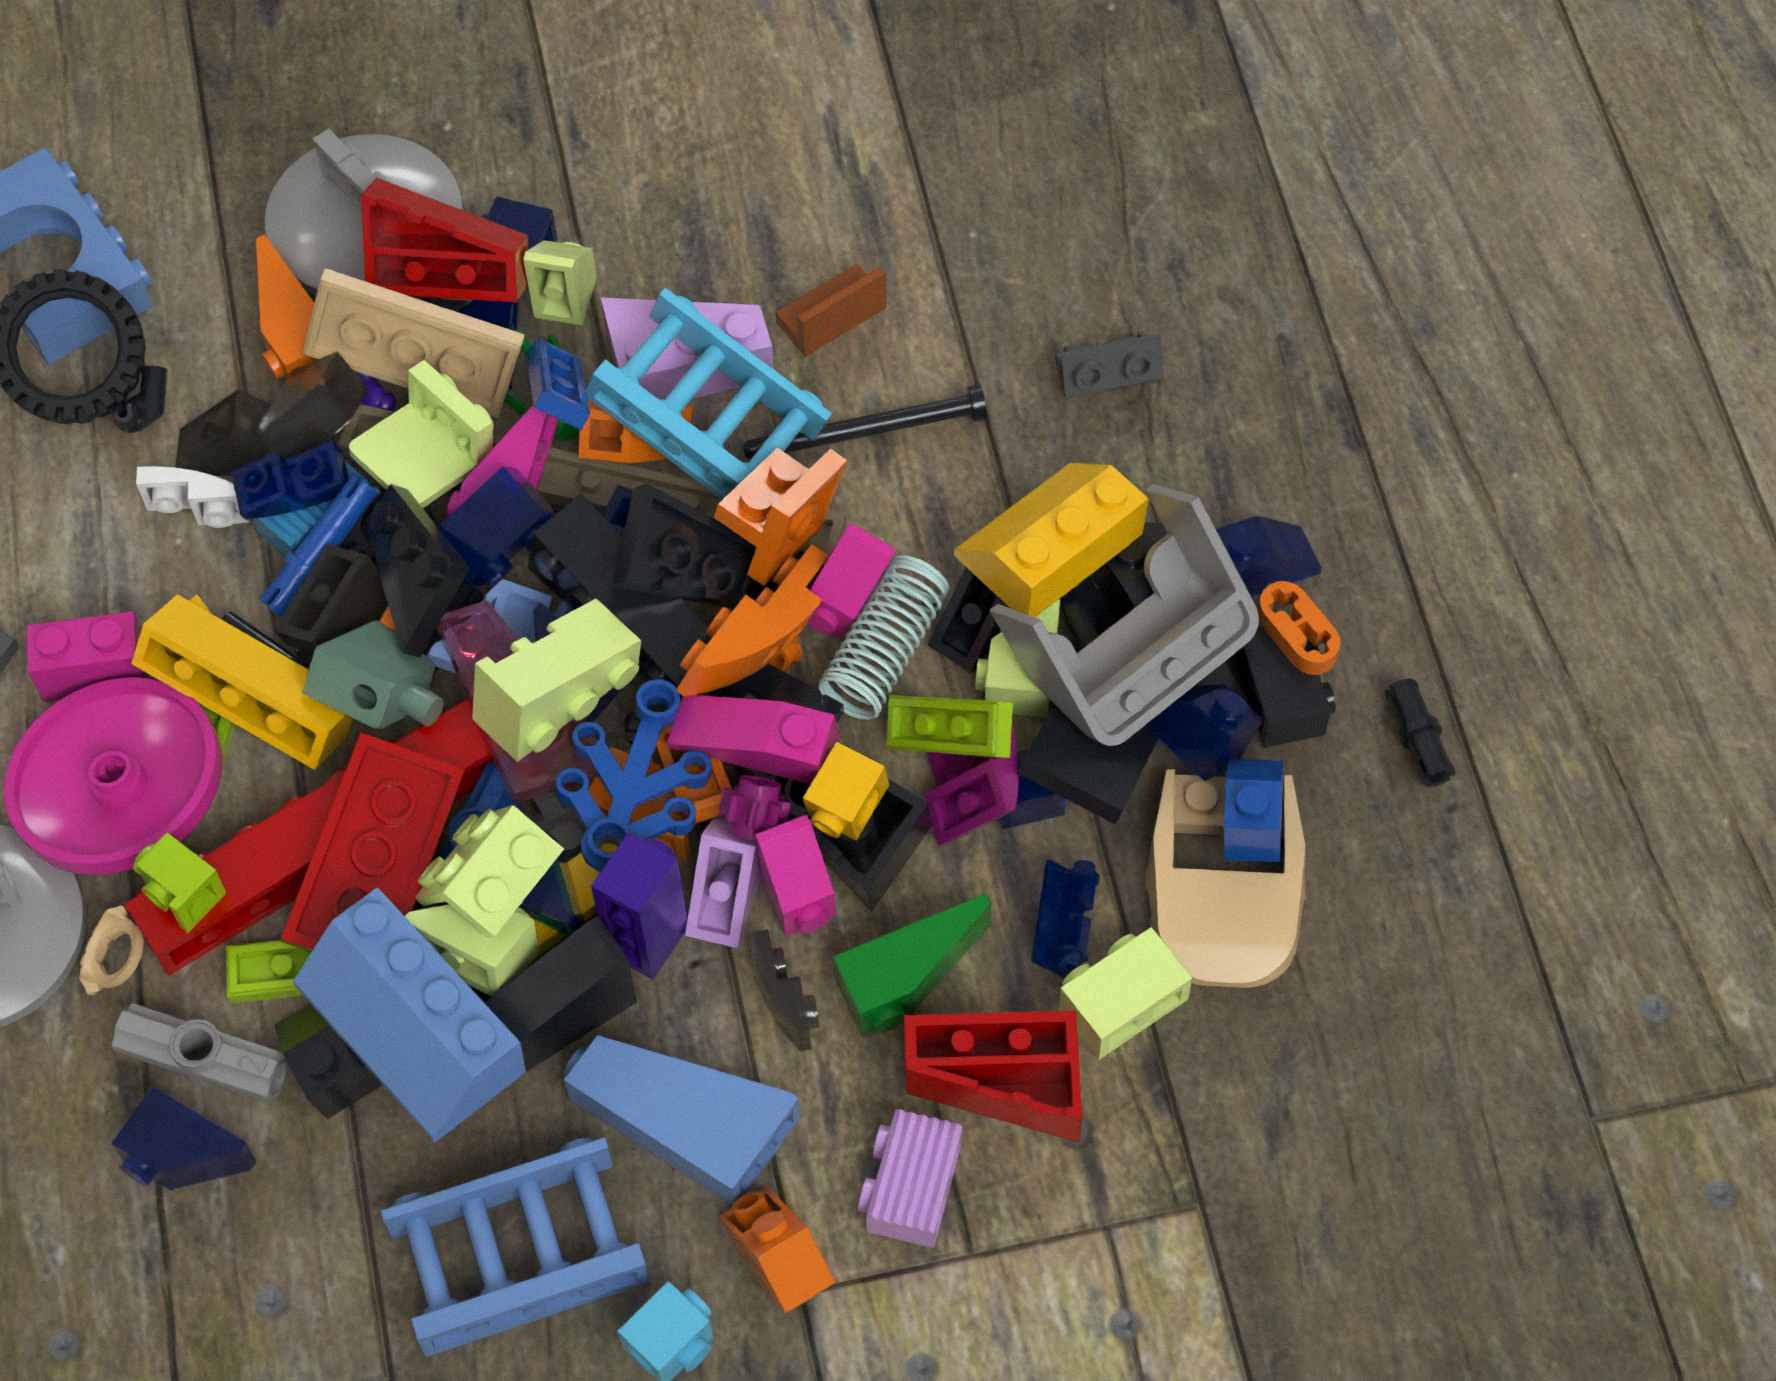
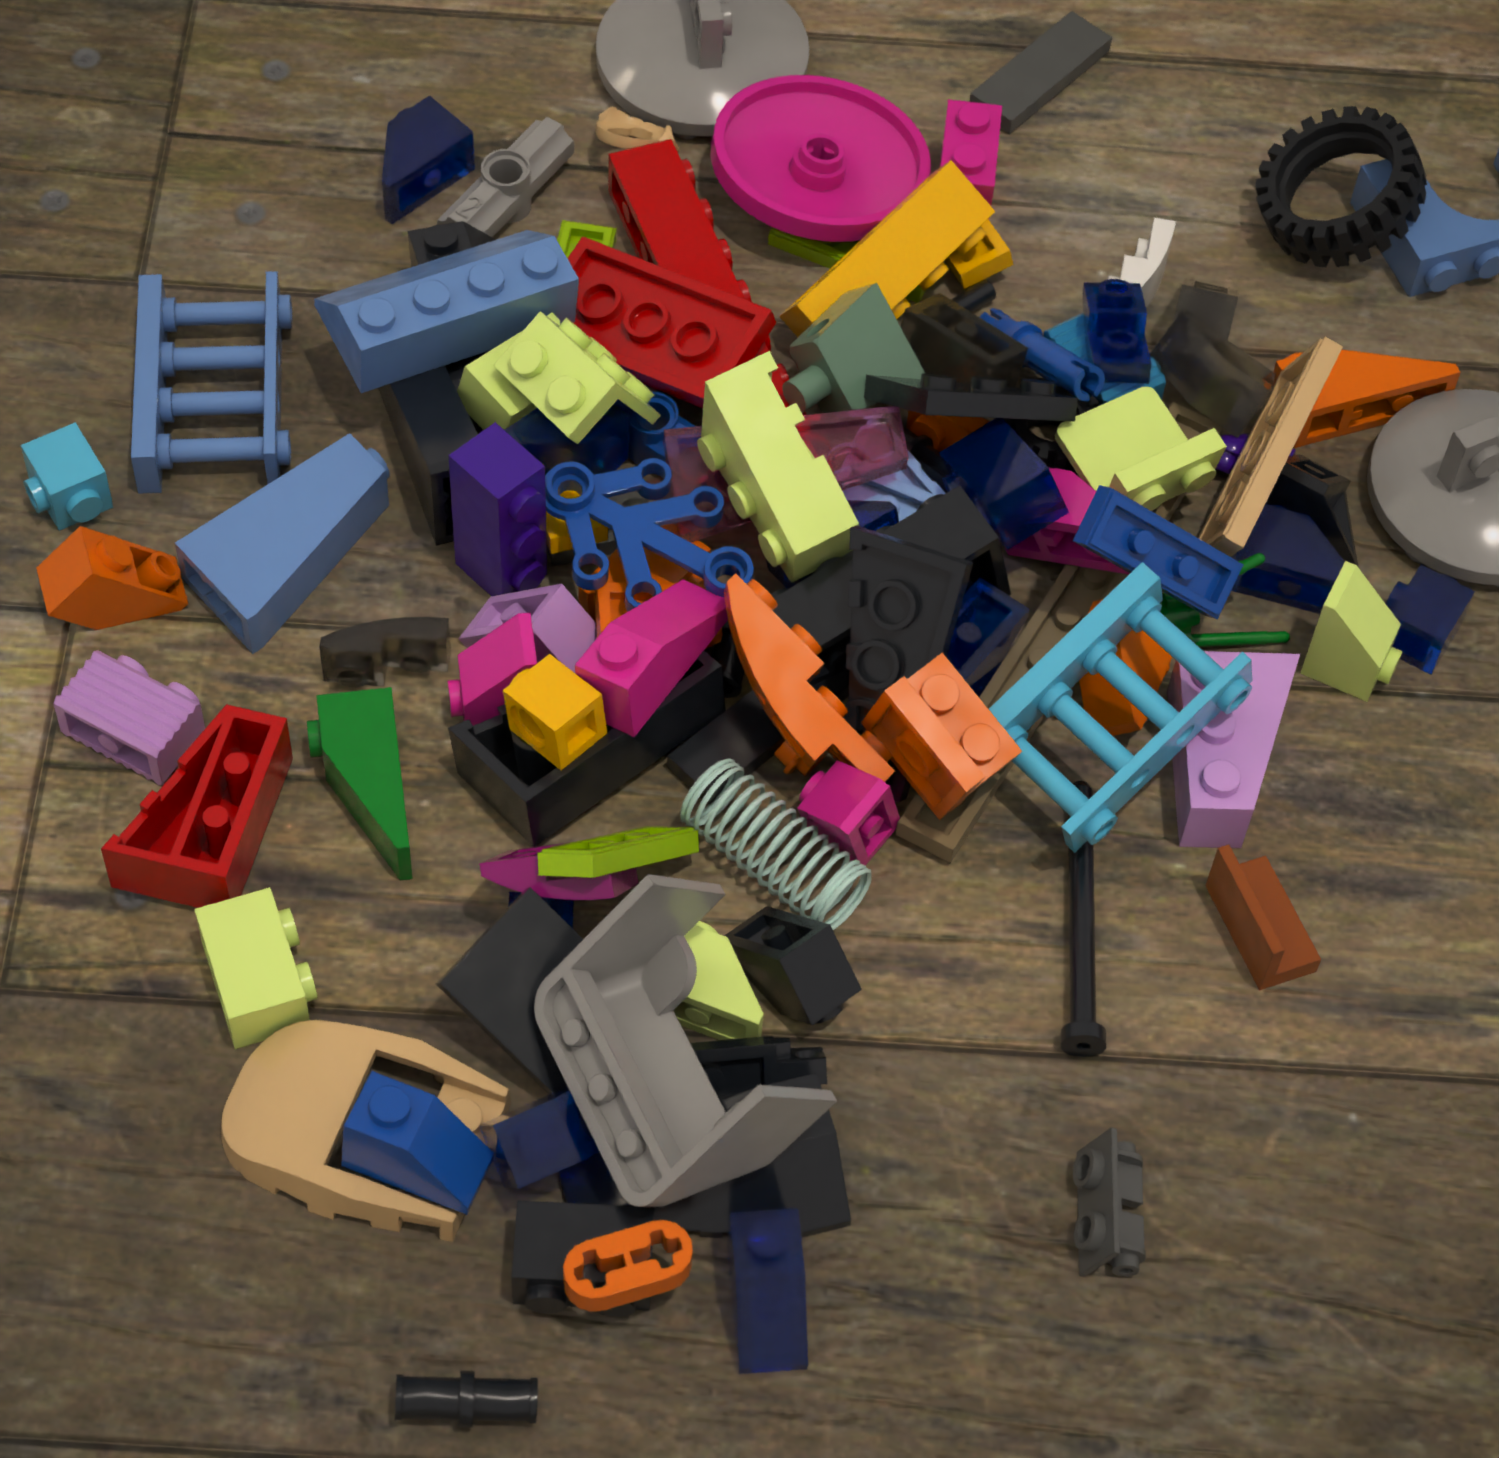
camera: 100 degrees right, 5 degrees down
(145, 406) = (1272, 264): black arm -> none
(178, 881) = (667, 165): lime brick -> none
(438, 249) = (1380, 483): red wedge -> none
(754, 806) = (569, 628): magenta gear -> none
(1056, 536) = (818, 999): yellow slope -> none
(1061, 924) = (365, 933): clear blue hinge -> none

